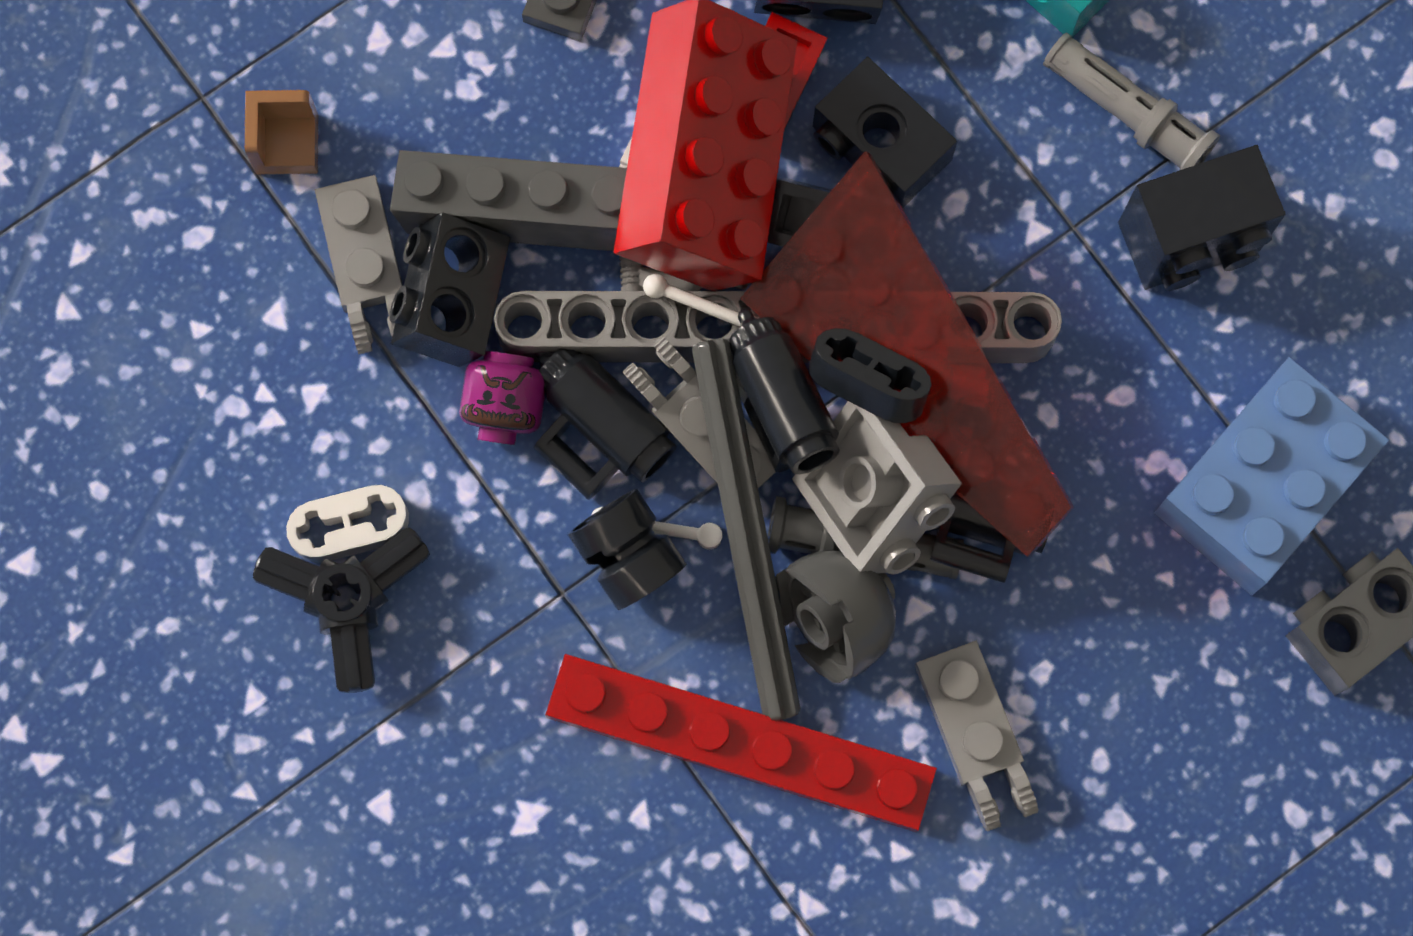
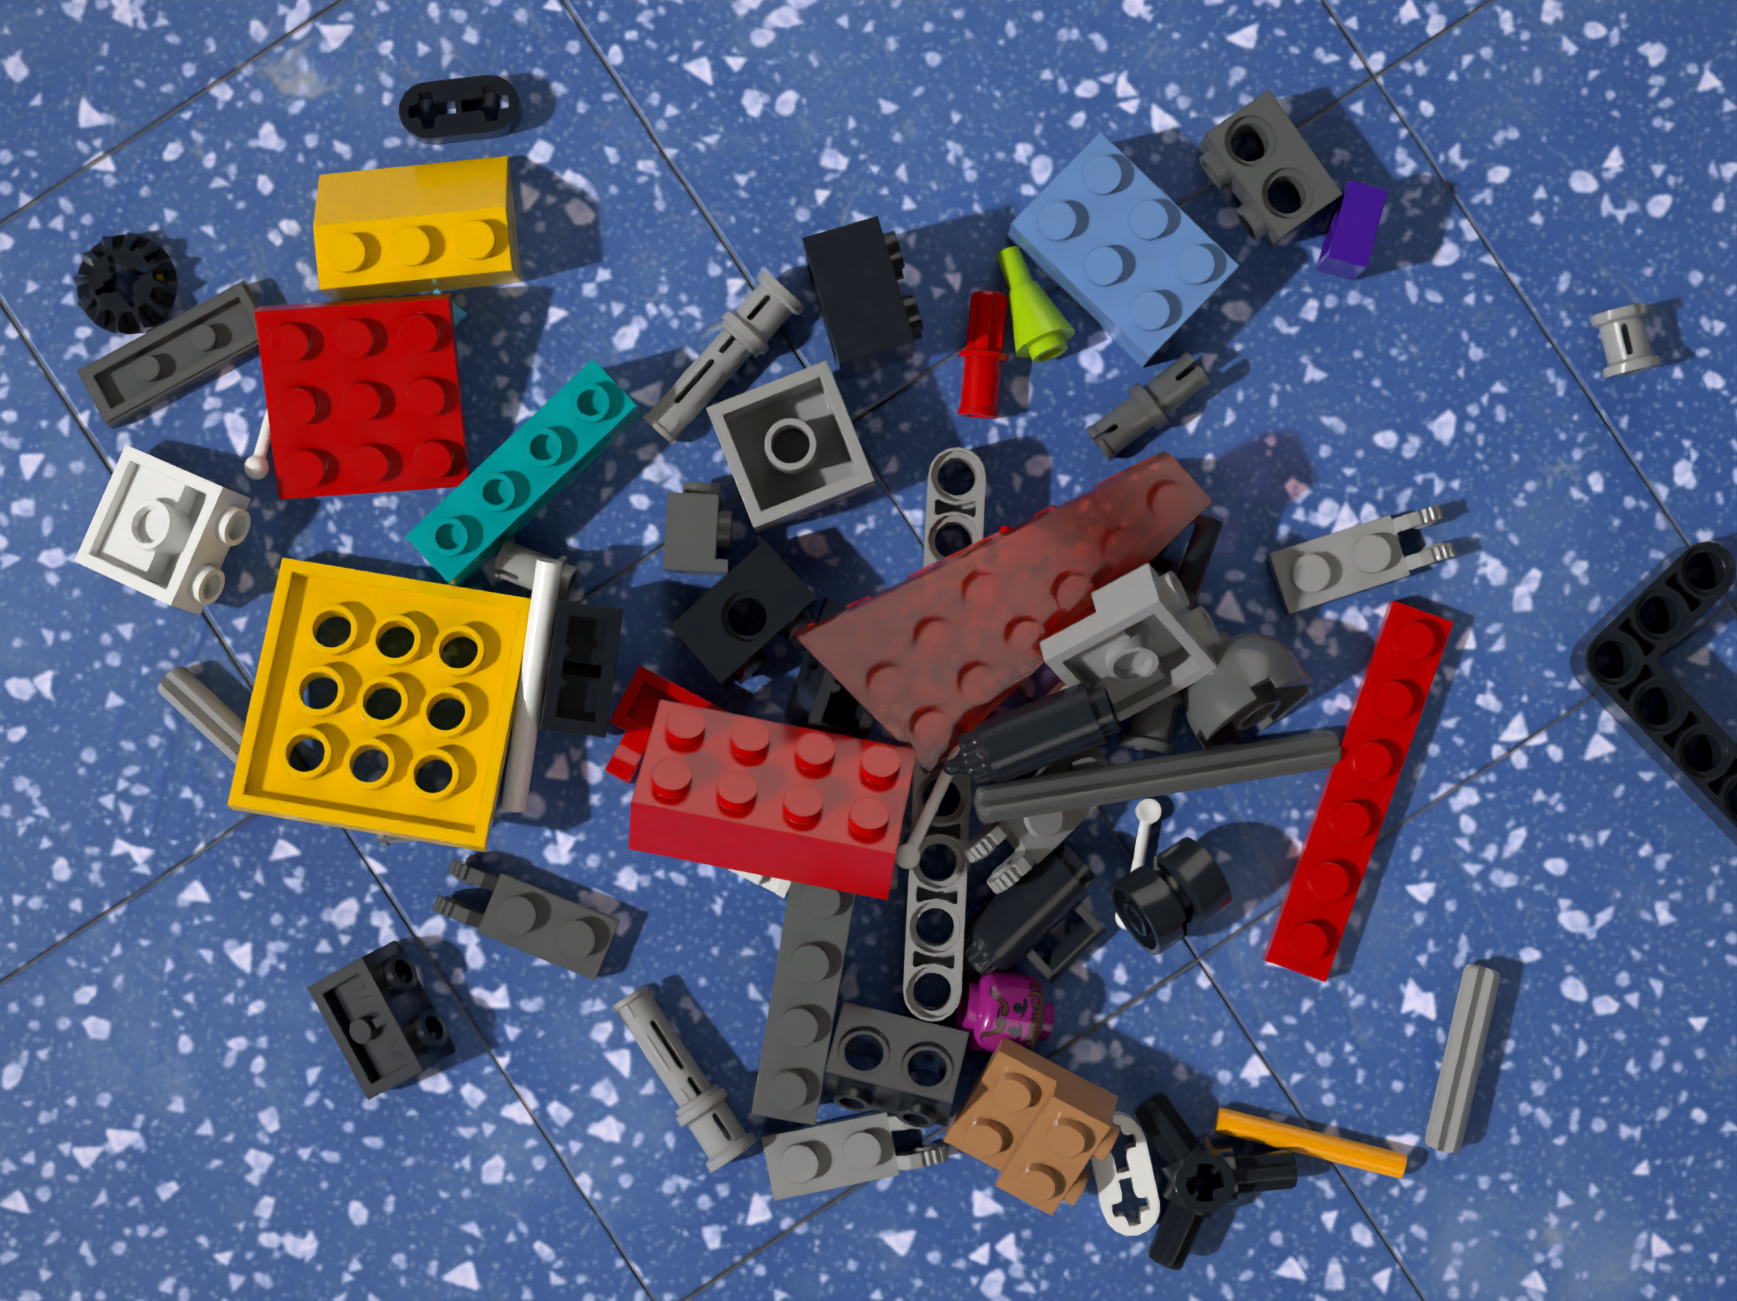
camera: 85 degrees left, 10 degrees up
(281, 132) = (714, 1234): medium nougat panel -> none
(382, 710) = (1310, 1143): none -> light orange bar
(393, 426) = (1035, 1126): none -> medium nougat plate
(472, 860) = (1462, 1058): none -> light grey axle
(492, 57) = (699, 1103): none -> light grey pin
(869, 375) = (1033, 647): black beam -> none
(961, 83) = (697, 530): none -> dark grey brick
(1049, 164) = (791, 447): none -> light grey brick
(1116, 513) = (1148, 406): none -> dark grey pin
(1153, 352) = (983, 355): none -> red axle
(1189, 401) = (1037, 323): none -> lime cone
(1312, 704) = (1351, 230): none -> dark purple piece

